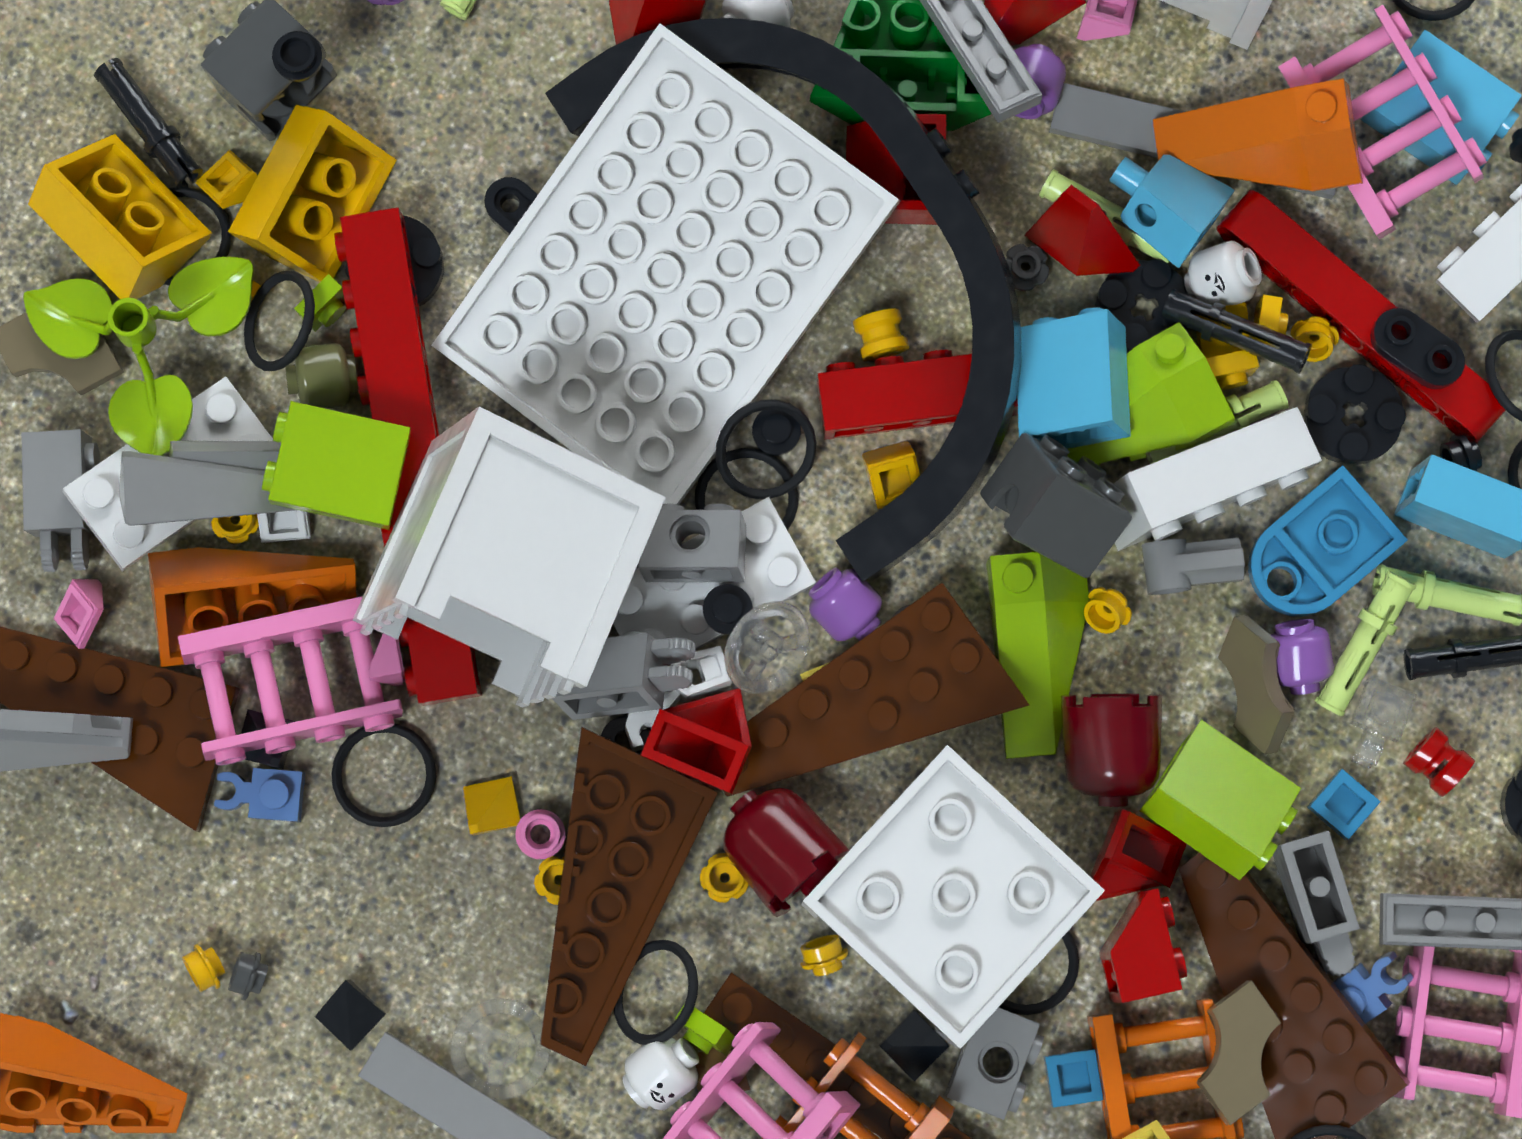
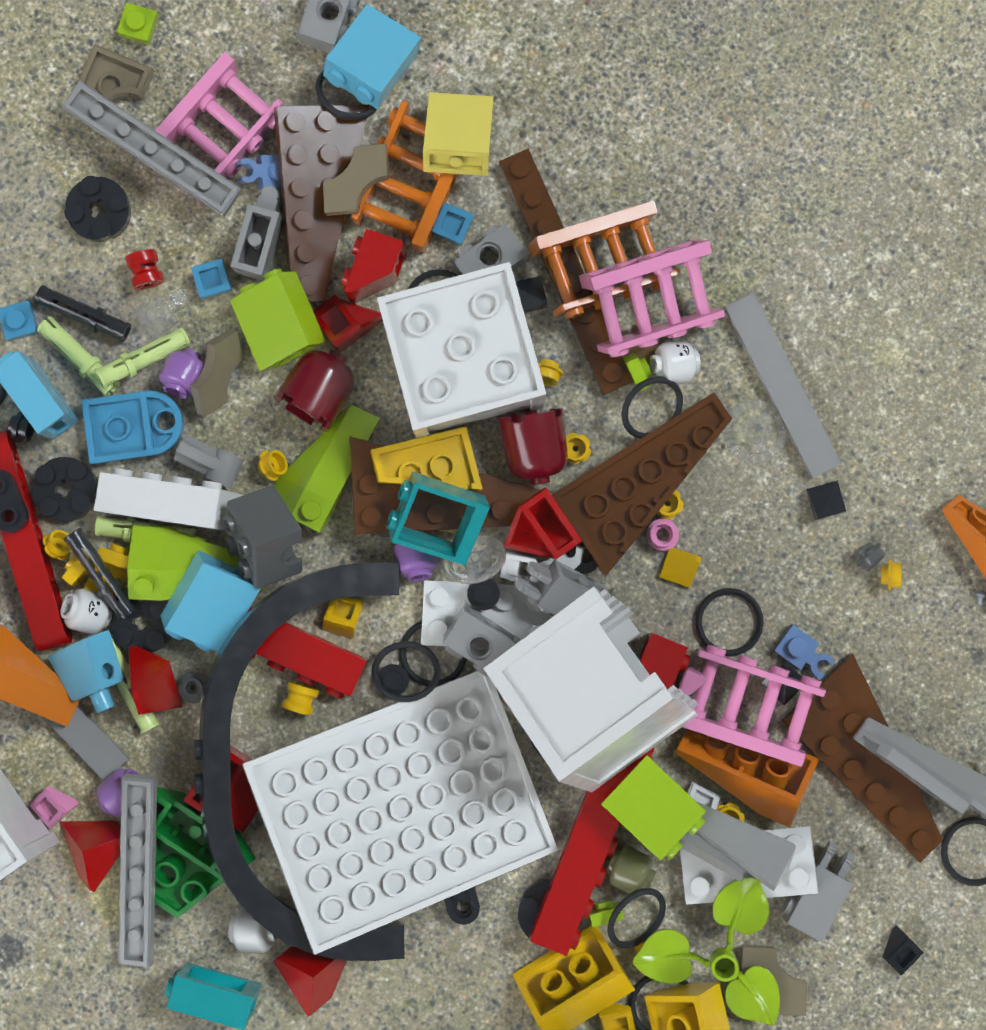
camera: 150 degrees left, 5 degrees up
(80, 610) = (845, 819): bright pink slope -> none
(798, 683) = (467, 532): none -> teal window
(902, 736) = (438, 456): none -> yellow wing

